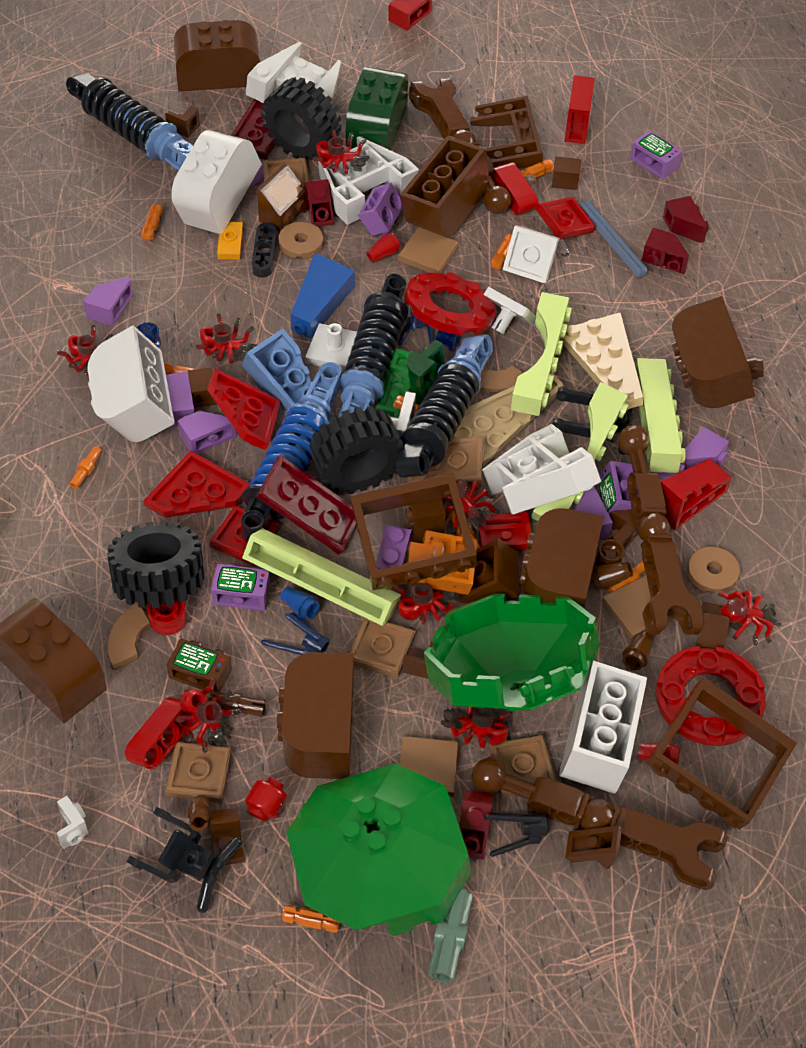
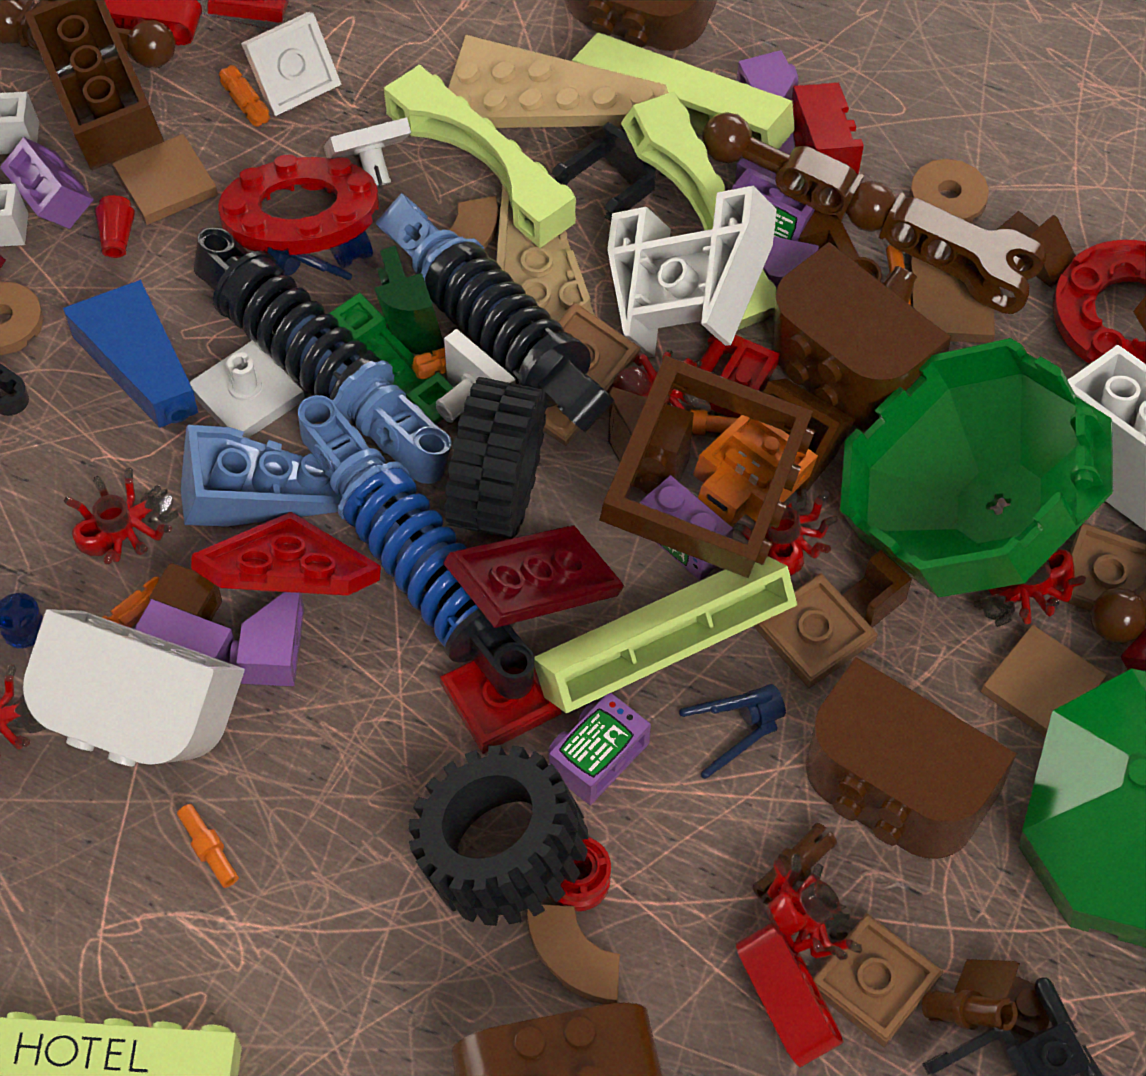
camera: 55 degrees left, 5 degrees up
(195, 487) = (370, 711): red plate -> none
(197, 664) = (702, 878): brick -> none
(266, 799) = (986, 911): red head -> none
(301, 603) = (677, 687): blue cone -> none
(638, 651) = (1032, 341): reddish brown cone -> none
(743, 614) = (1048, 198): animal -> none

